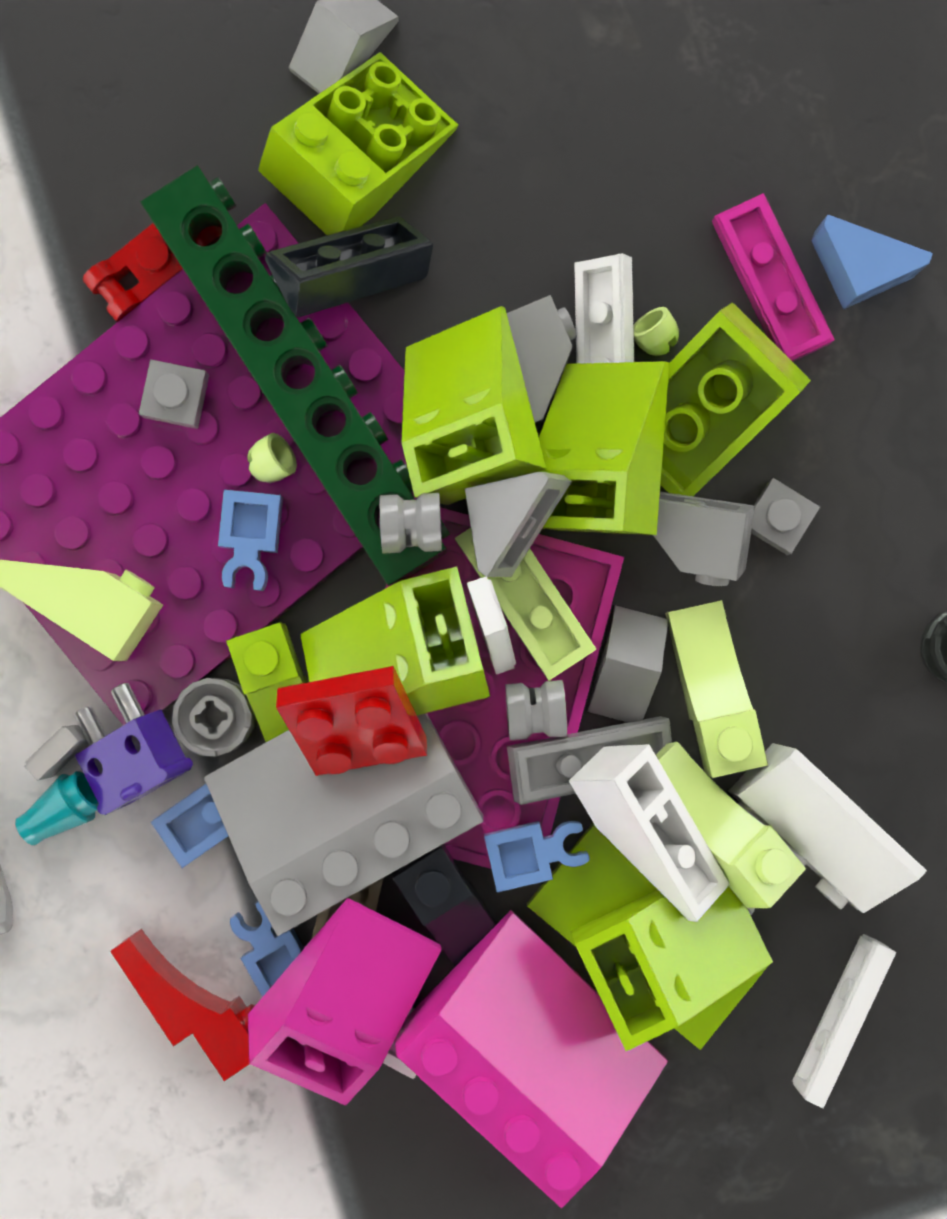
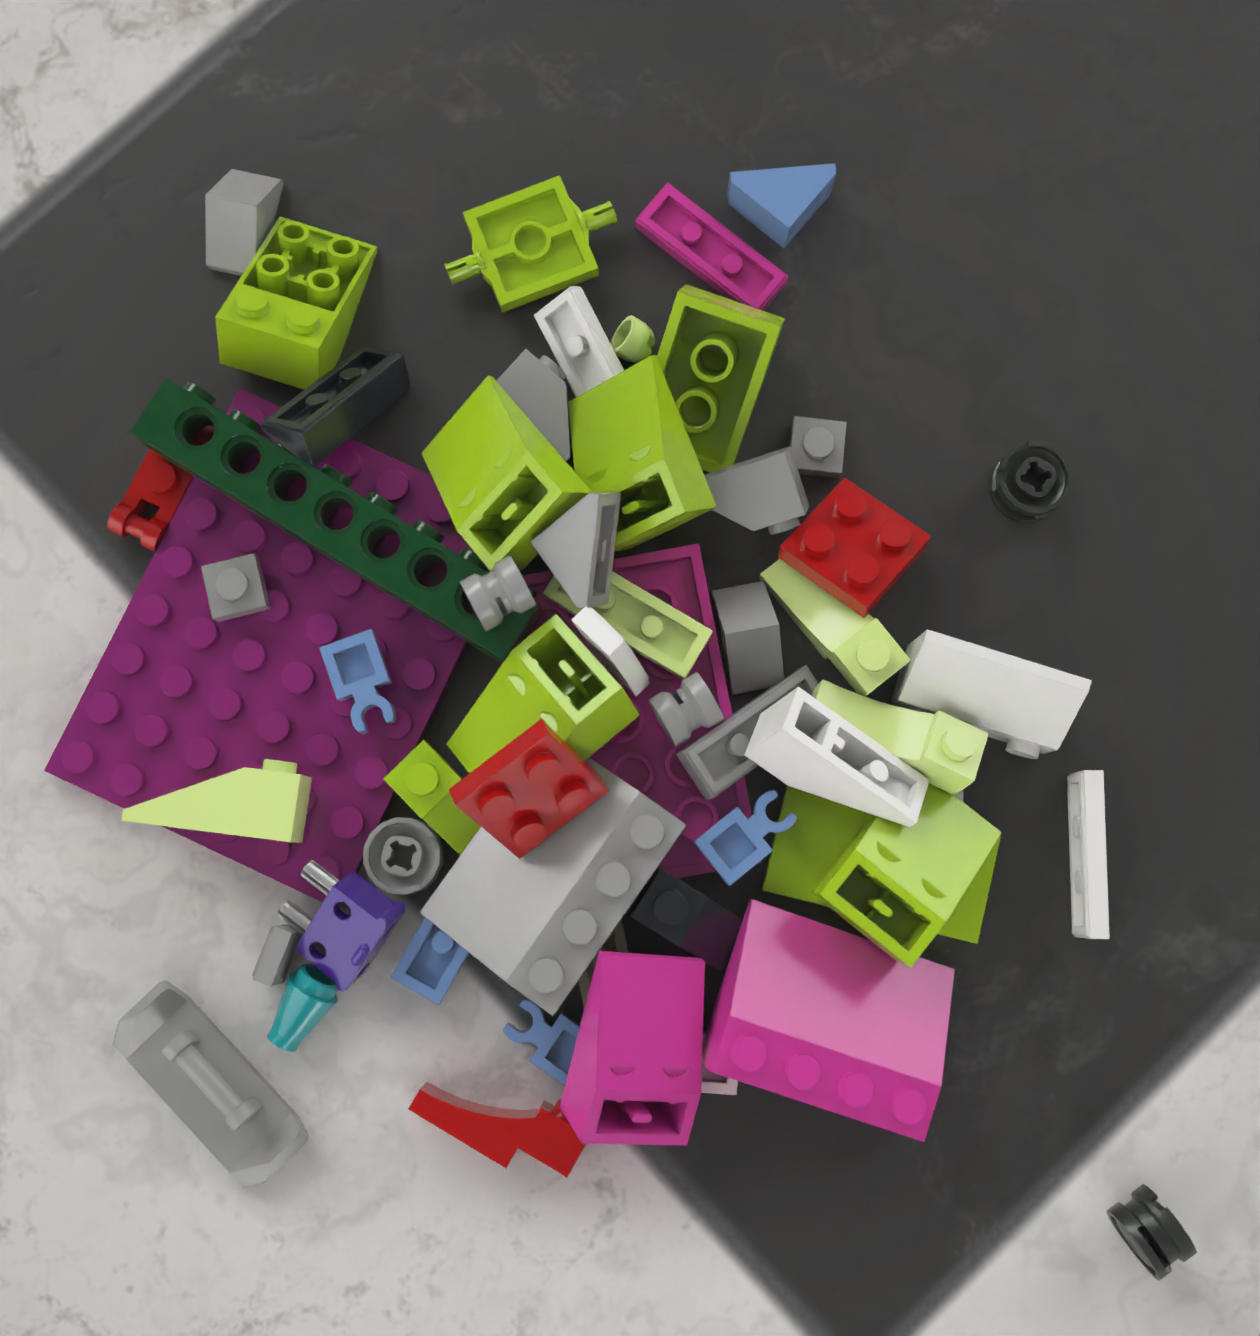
camera: 25 degrees left, 5 degrees down
(271, 459) = (348, 602): yellowish green hinge -> none
(605, 192) = (531, 243): none -> lime plate
(768, 630) = (854, 547): none -> red plate

